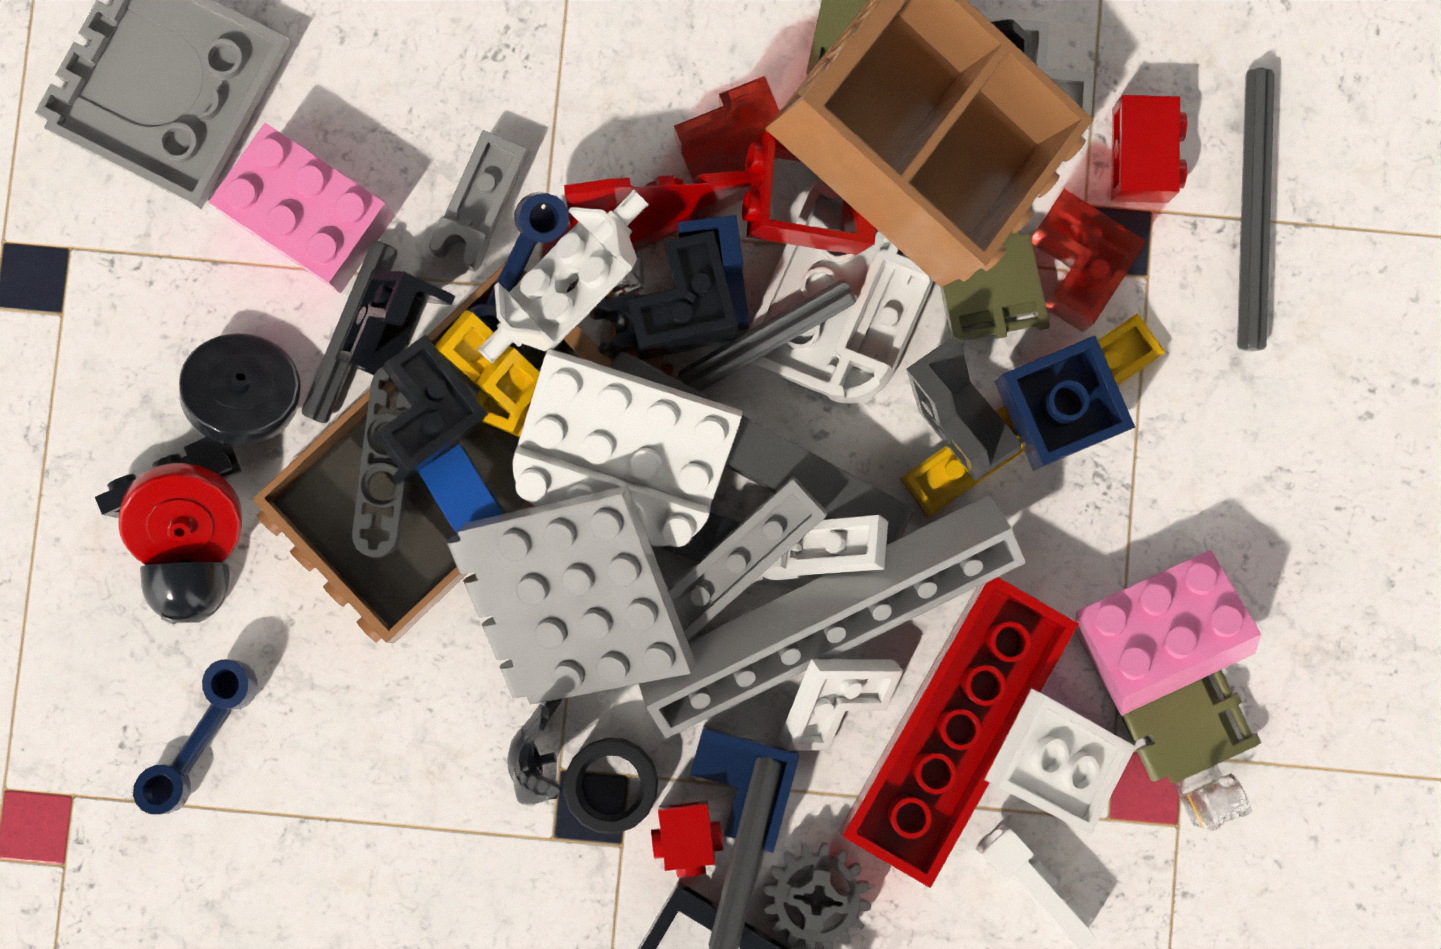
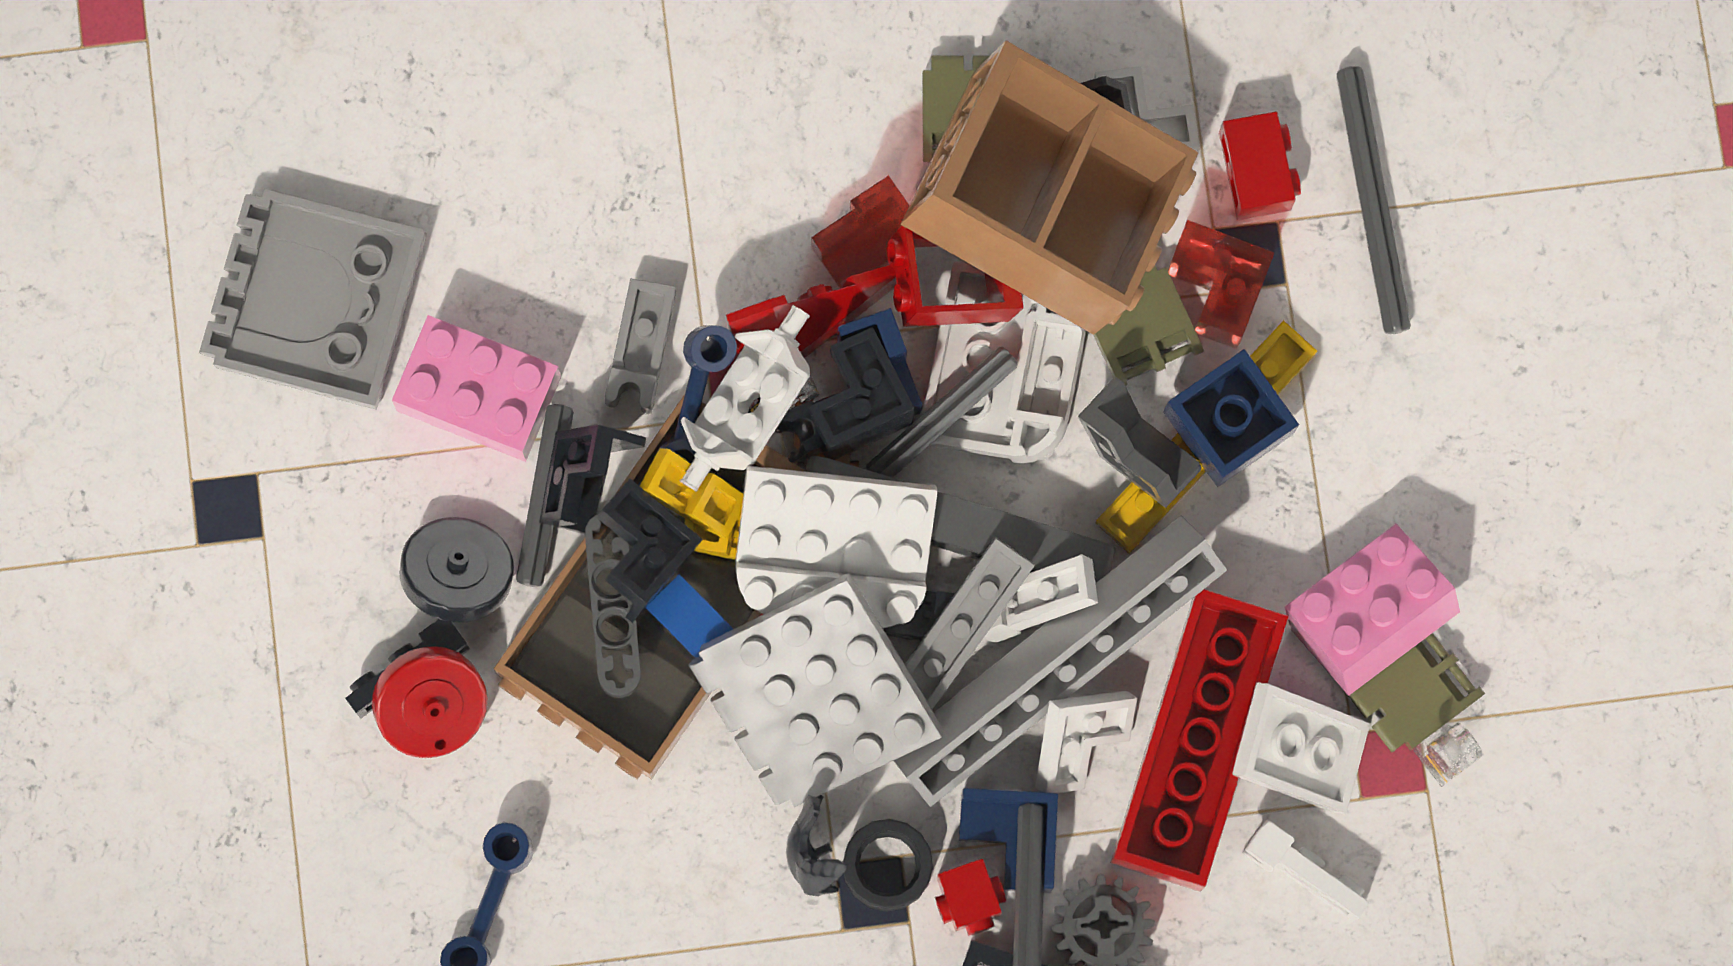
camera: 15 degrees left, 5 degrees down
(185, 589) = (442, 769): black helmet -> none

